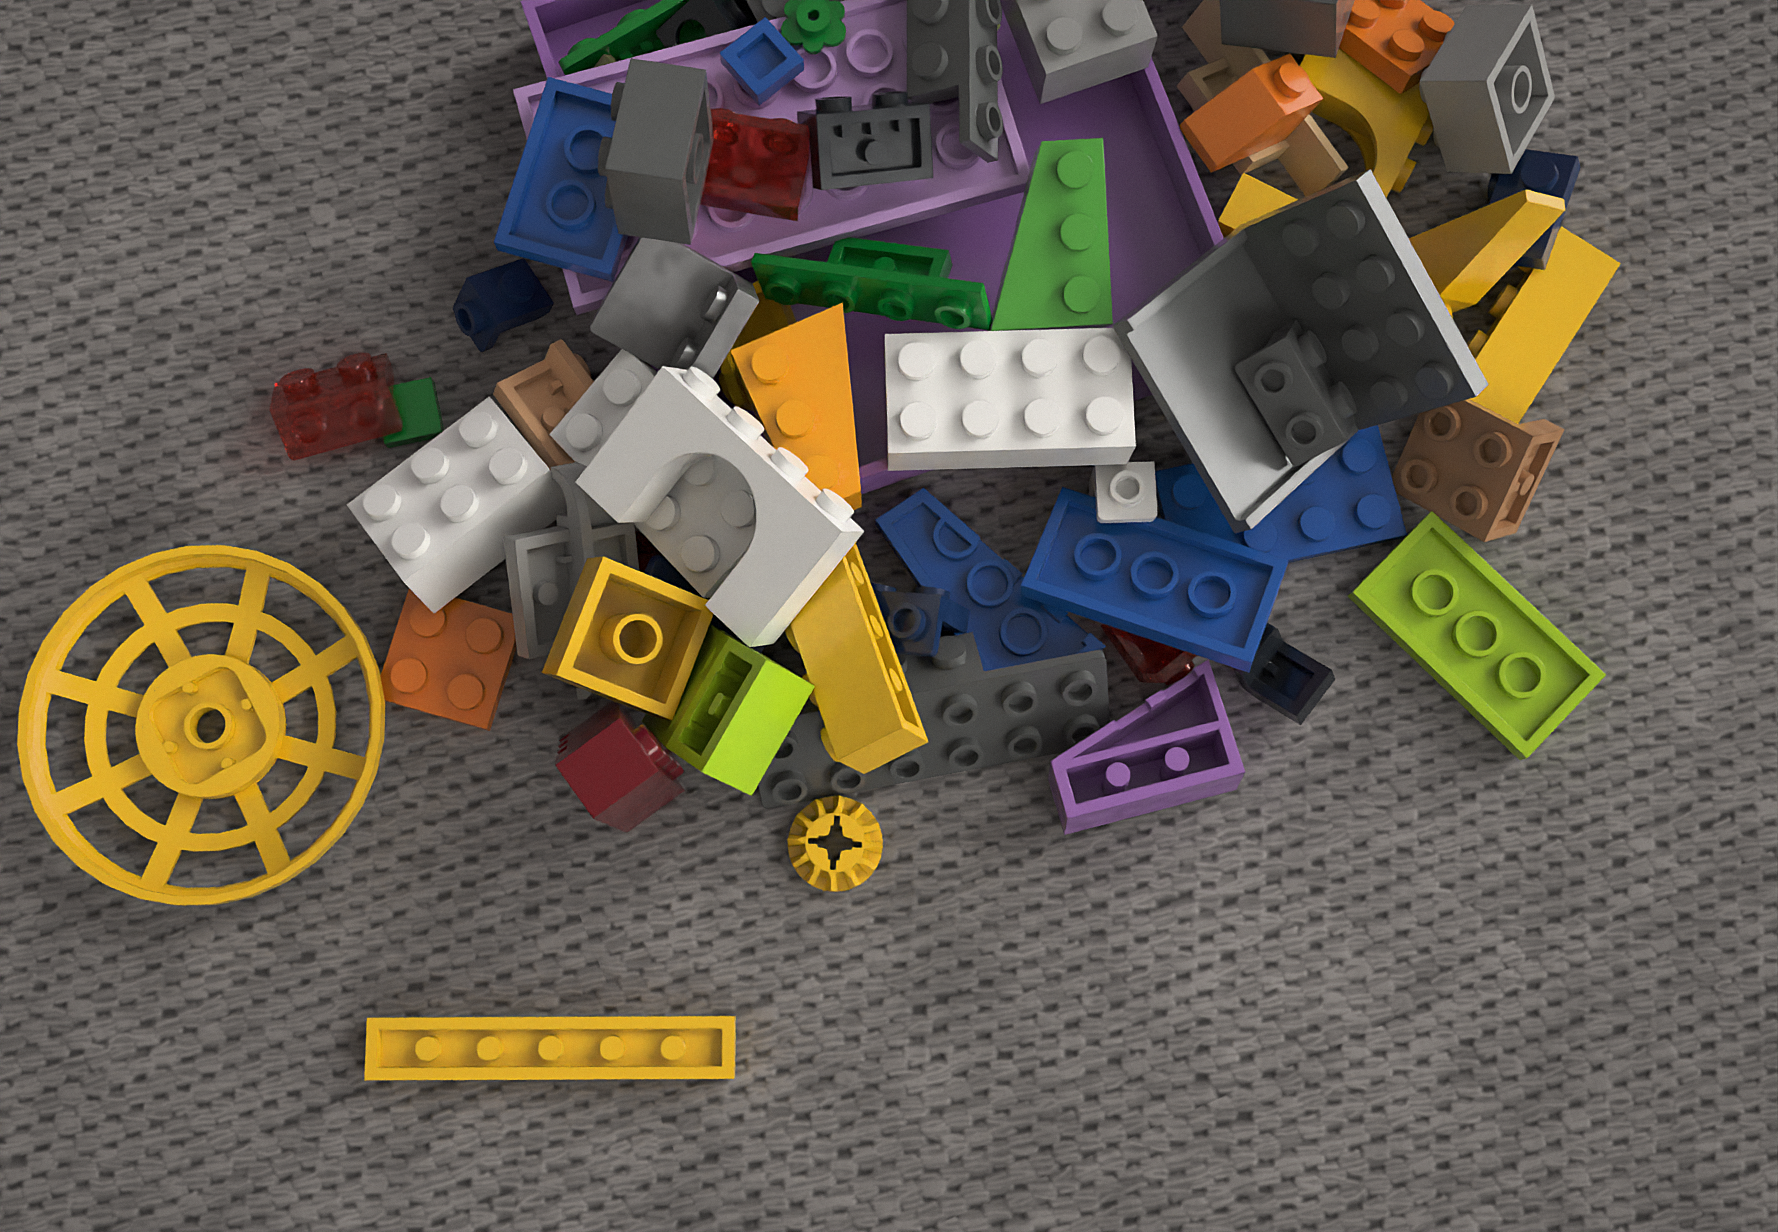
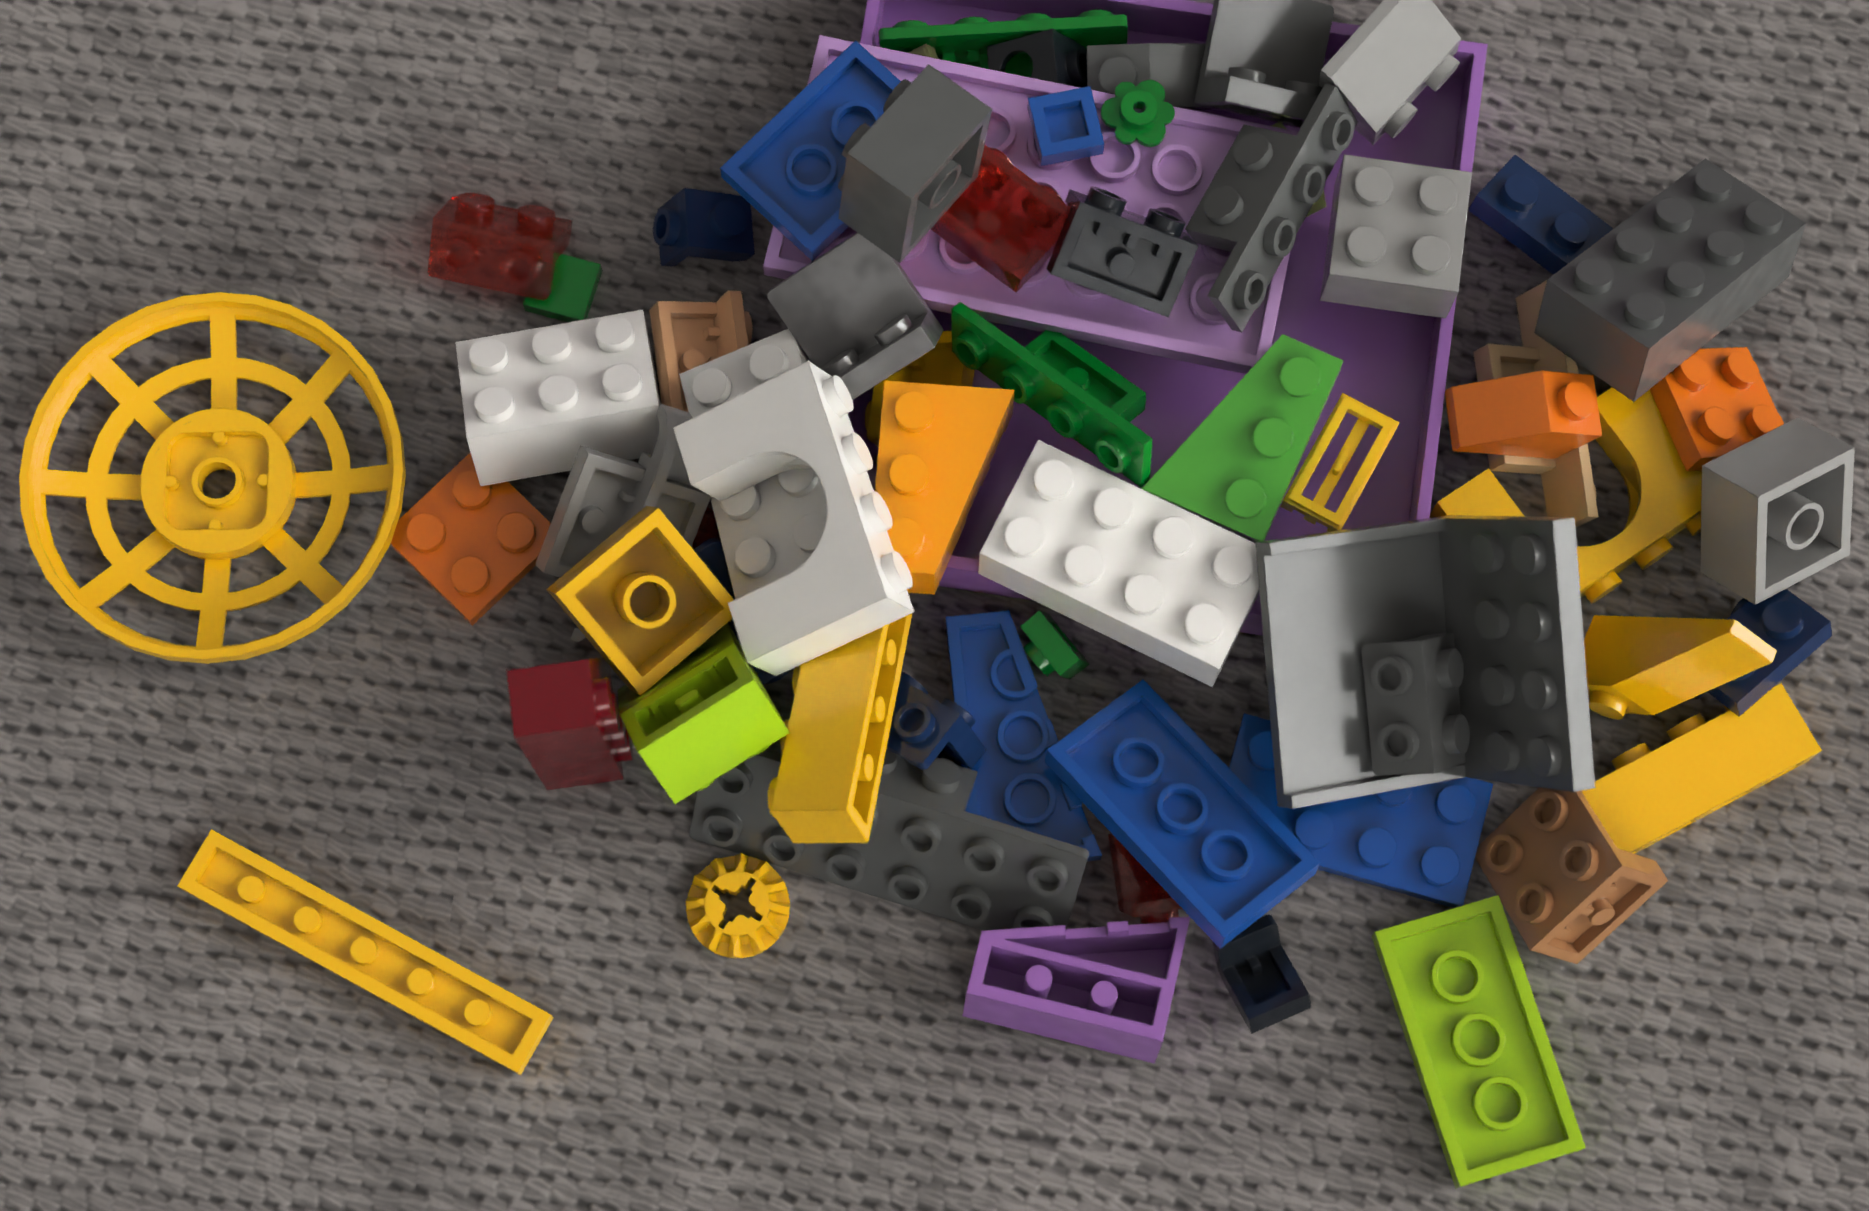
camera: 30 degrees right, 5 degrees down
(973, 500) = (1051, 647): none -> green plate
(1124, 492) = (1199, 715): white bracket -> none
(1130, 276) = (1315, 510): none -> yellow tile

